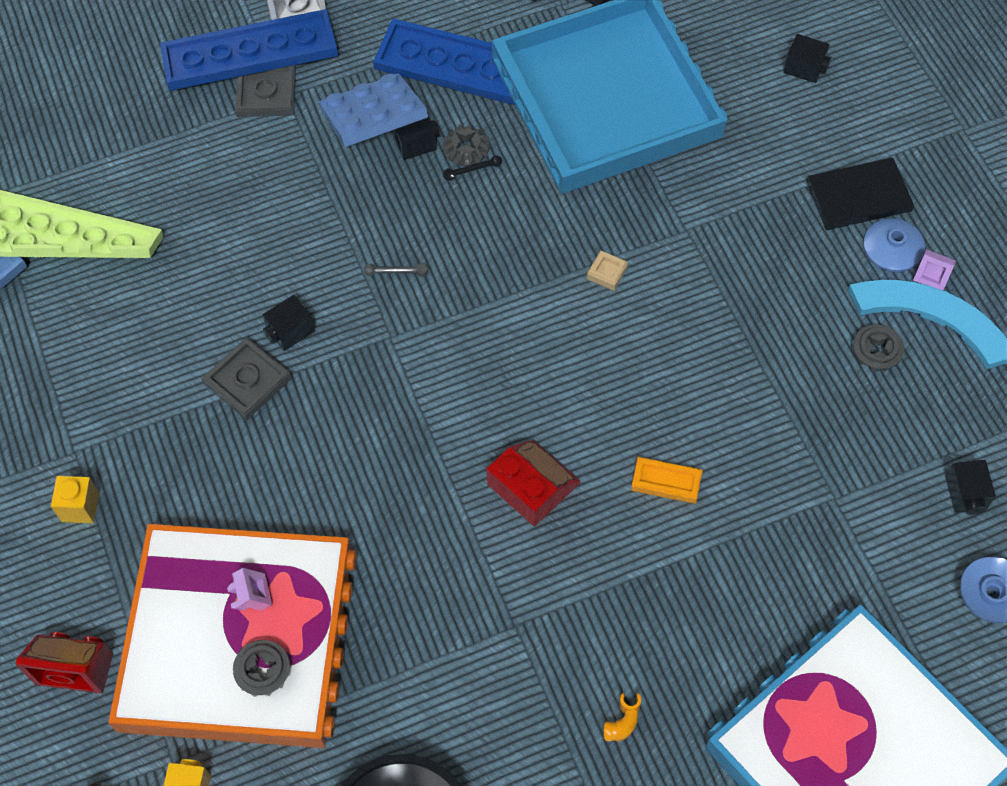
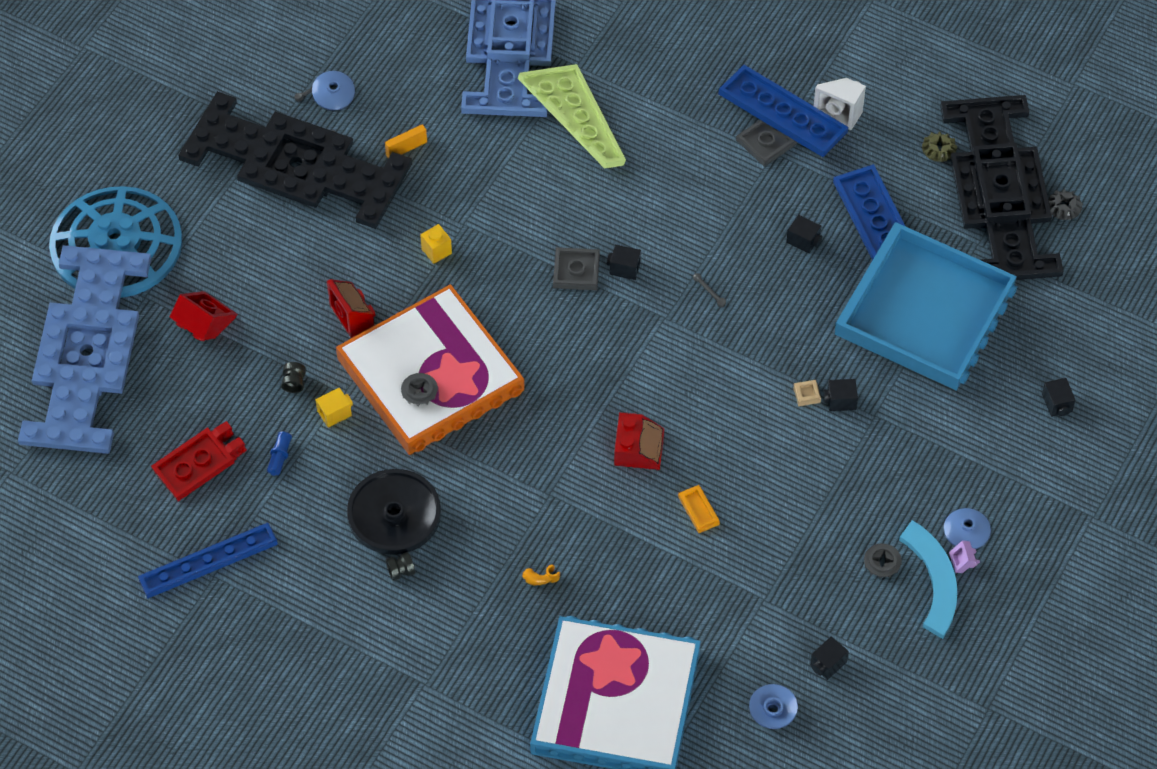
camera: 50 degrees right, 5 degrees down
(250, 590) = (454, 353): lavender tile -> none
(372, 109) = (798, 200): medium blue plate -> none
(449, 174) = (797, 271): black hinge -> none
(466, 155) = (816, 267): dark grey gear -> none
(642, 239) = (841, 395): none -> black brick
(860, 193) = (985, 488): black tile -> none

